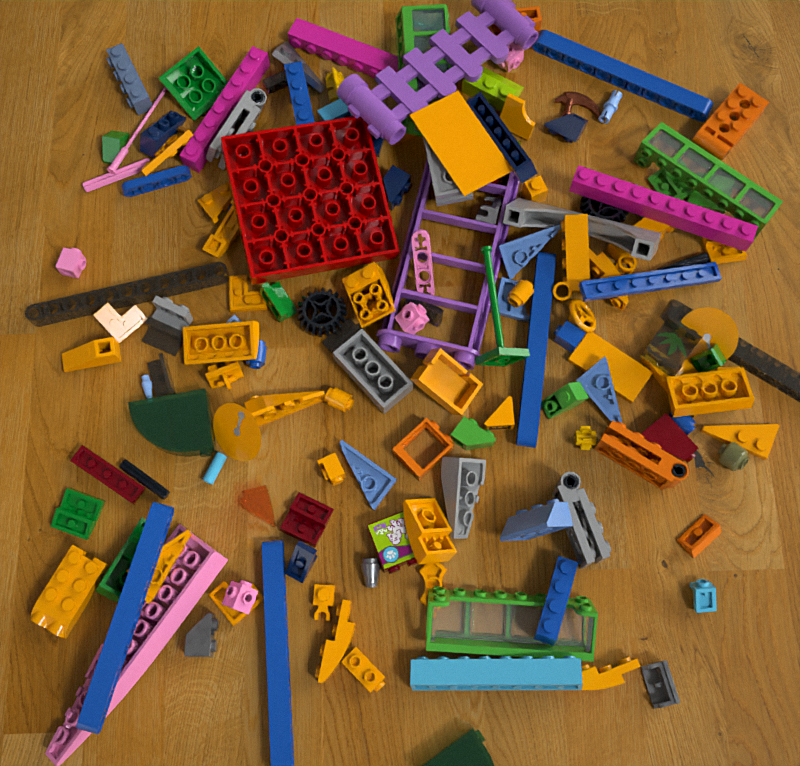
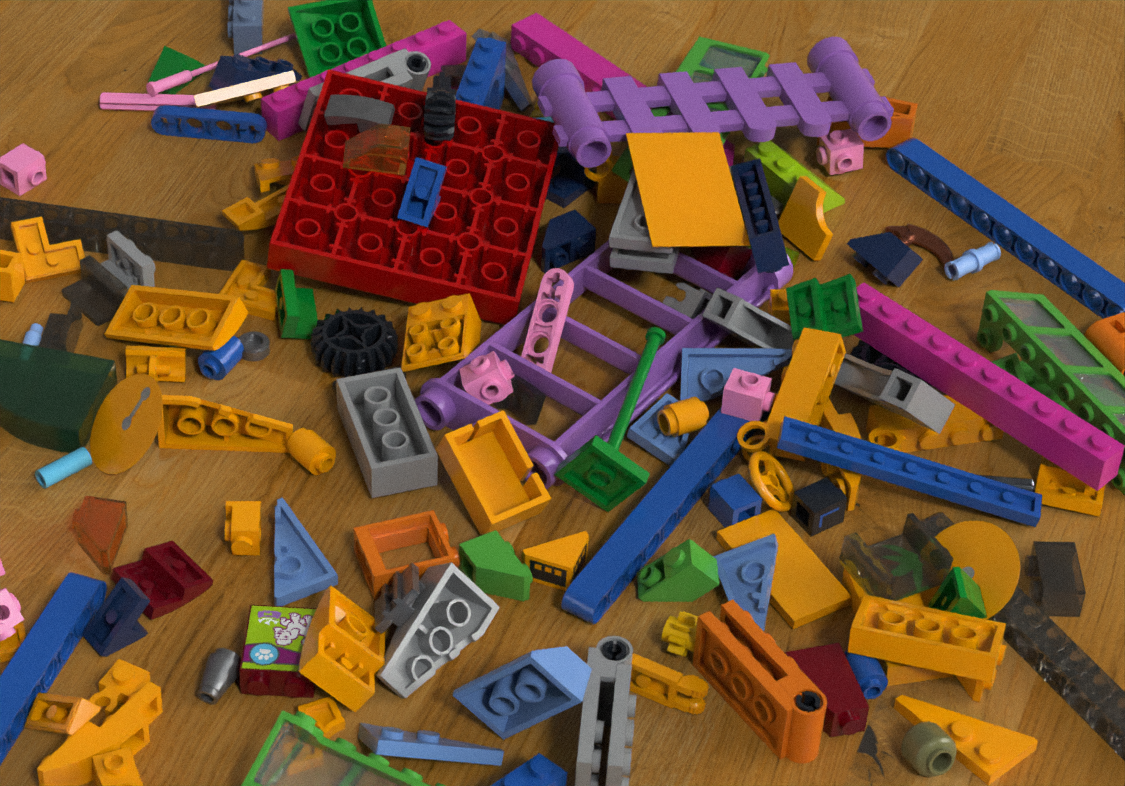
camera: 20 degrees right, 30 degrees down
(255, 163) = (358, 109): none -> flat silver slope
(267, 334) = (255, 346): none -> flat silver tile
(279, 186) = (379, 149): none -> clear orange slope
(298, 139) = (440, 110): none -> black gear
(308, 637) = (60, 713): none -> light orange slope
(318, 207) = (422, 192): none -> blue slope
(438, 485) = (397, 599): none -> flat silver piece
(488, 573) = (425, 745): none -> medium blue wing
(549, 267) = (747, 395): none -> bright pink brick
(566, 194) = (825, 306): none -> green slope
(589, 473) = (667, 686): none -> light orange hinge
(611, 319) = (818, 506): none -> black brick
(746, 315) = (1055, 578): none -> clear smoke piece

